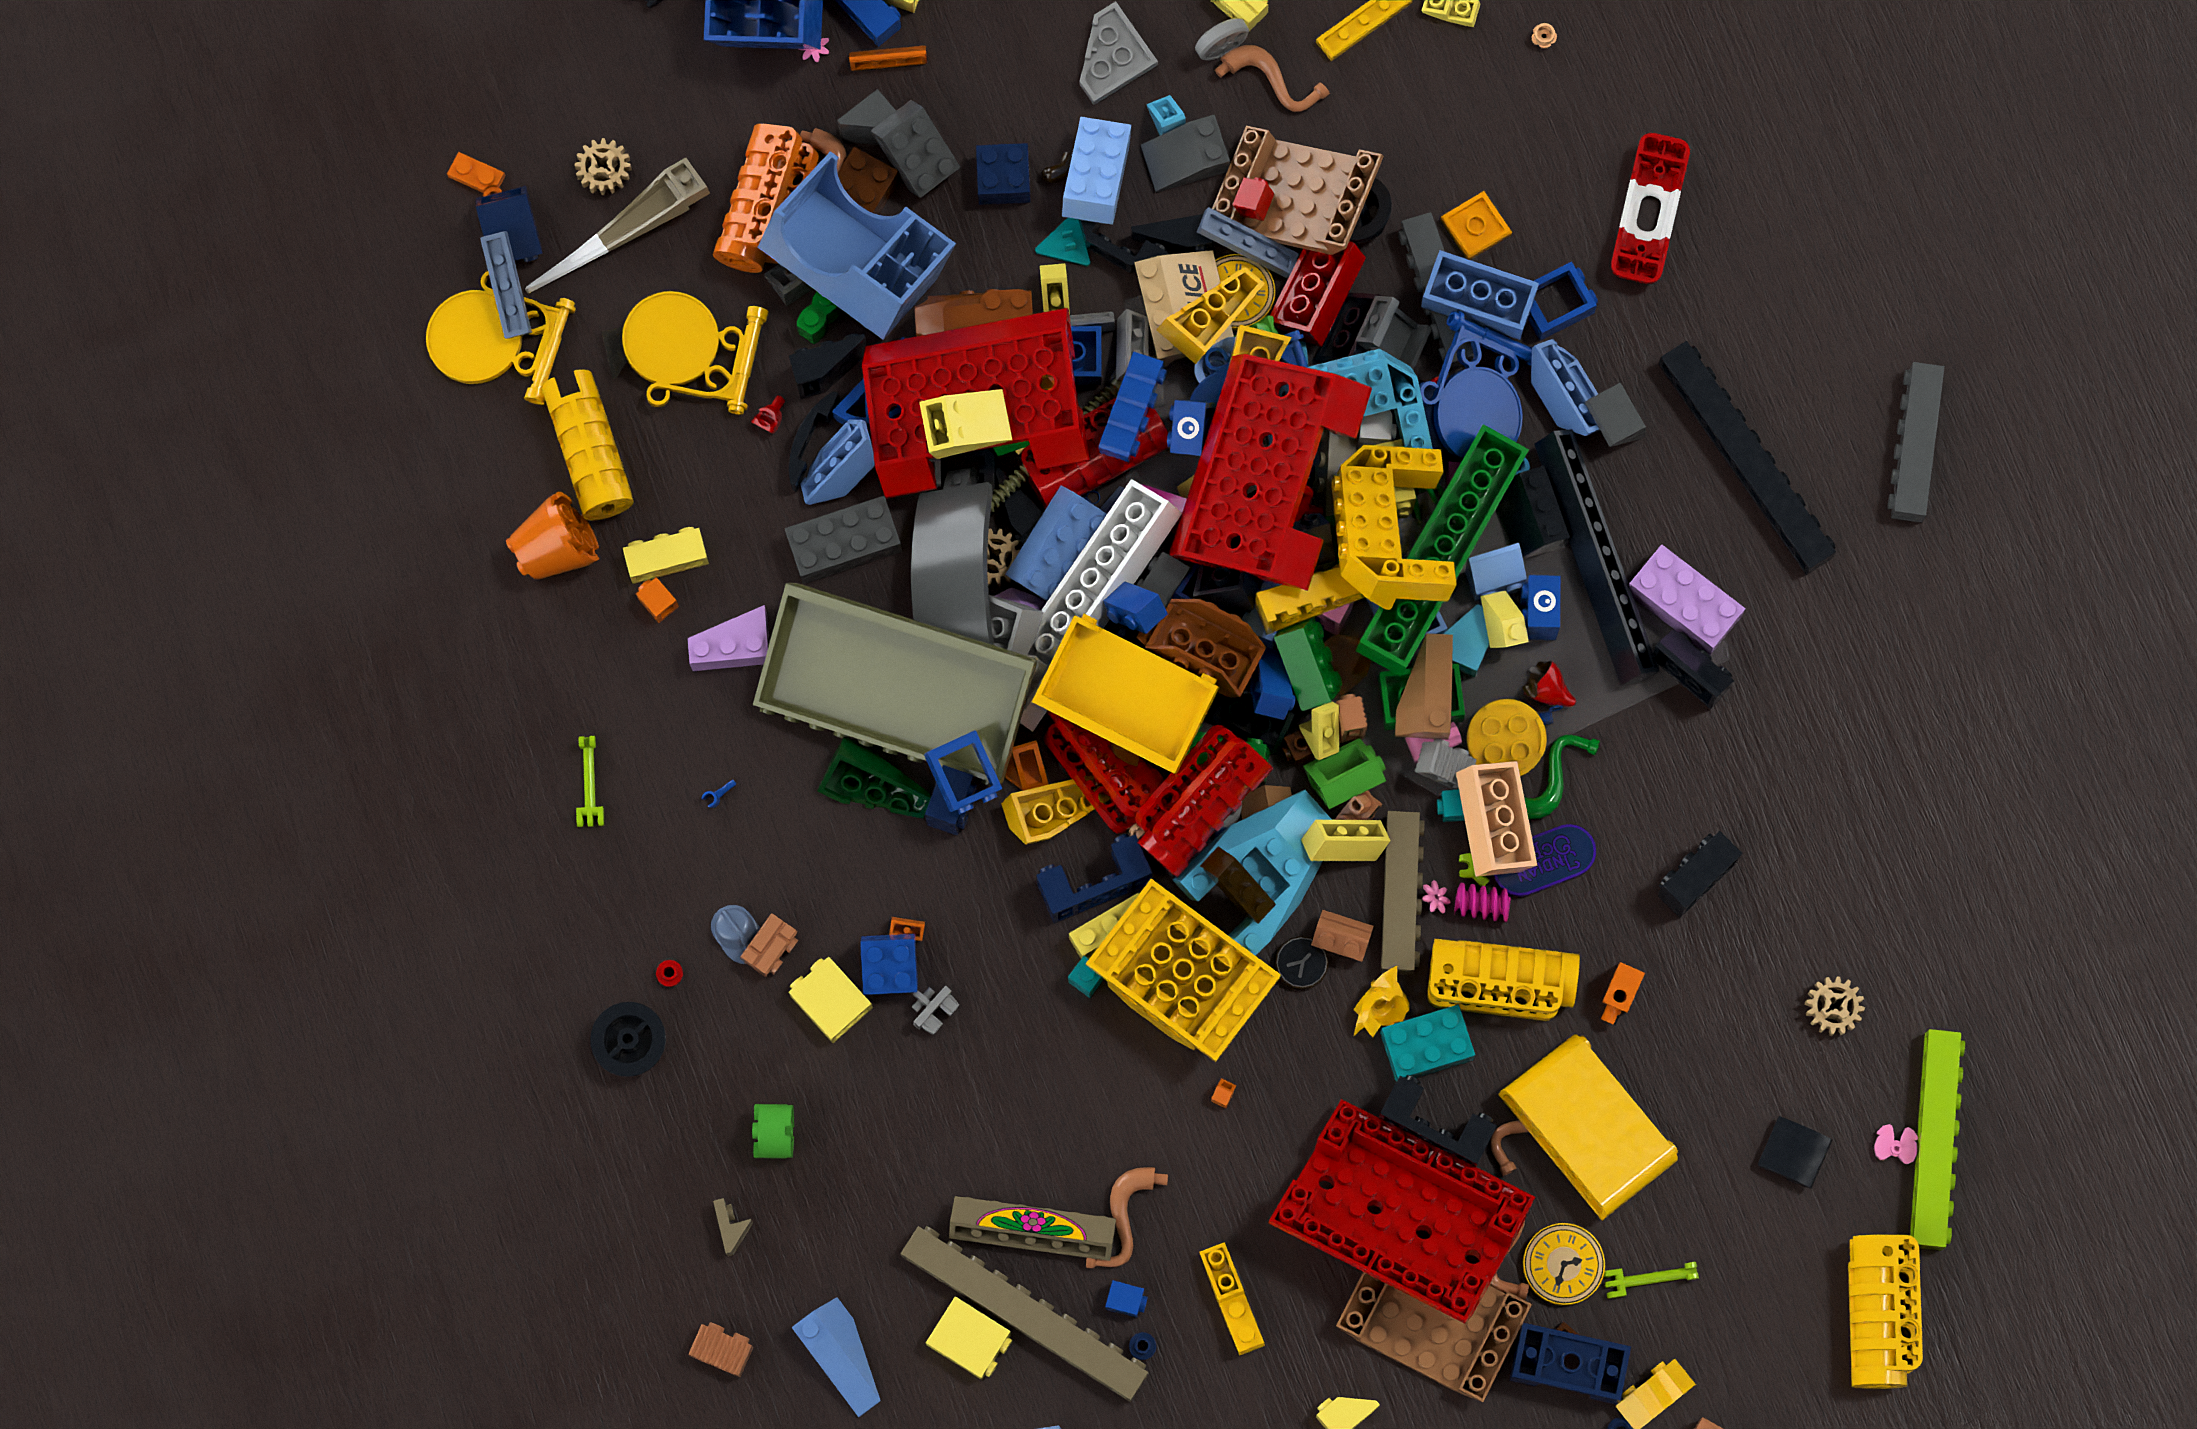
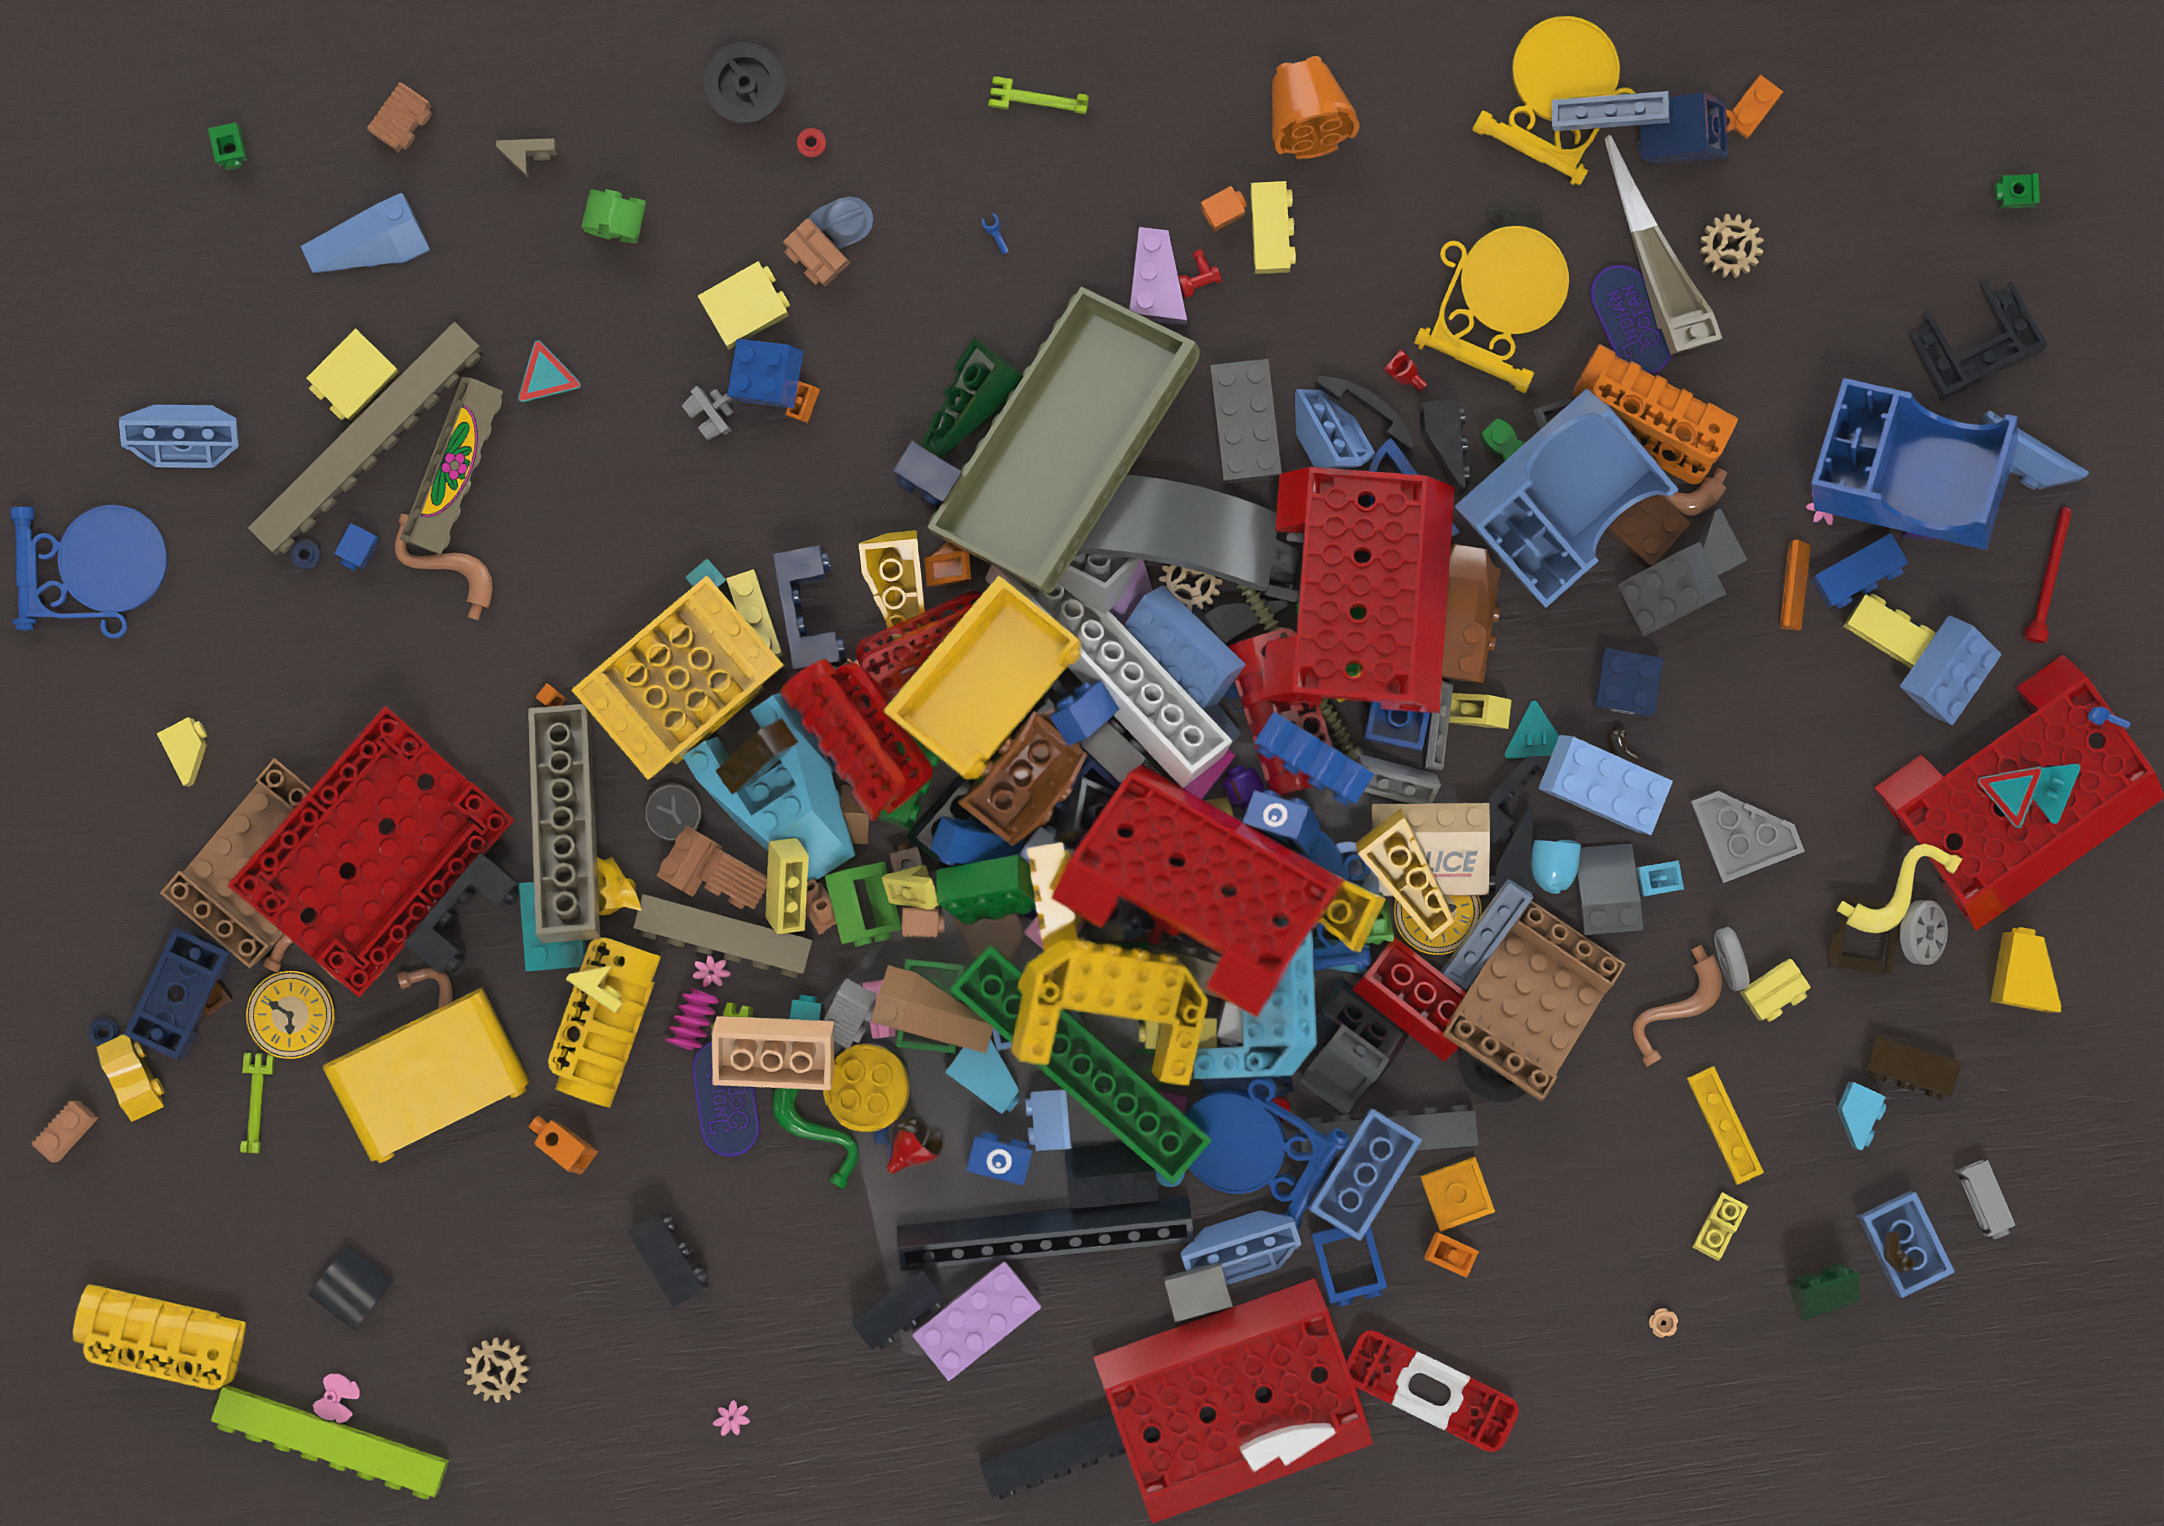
camera: 95 degrees right, 10 degrees up
(589, 448) = (1406, 168): yellow piece -> none
(683, 239) = (1628, 318): none -> tile
(719, 601) = (1206, 276): none -> red piece
(931, 1162) = (545, 375): none -> piece
(965, 422) = (1327, 570): light yellow slope -> none
(966, 804) = (971, 480): blue window -> none
(1166, 473) = (1241, 785): none -> dark purple head
(1173, 199) = (1555, 864): none -> medium azure piece
(1231, 1298) = (331, 657): yellow slope -> none
(1253, 198) = (1535, 951): brick -> none
(1335, 1046) = (564, 823): none -> dark tan brick
(1349, 891) = (733, 878): none -> nougat brick
(1473, 984) = (590, 983): none -> light yellow slope
(1503, 620) = (990, 1112): light yellow slope -> none
(1529, 219) = (1451, 1254): none -> orange slope
(1672, 382) = (1221, 1366): none -> red slope
(1727, 311) = (1285, 1442): none -> white slope
(1820, 792) = (732, 1418): none -> bright pink plant

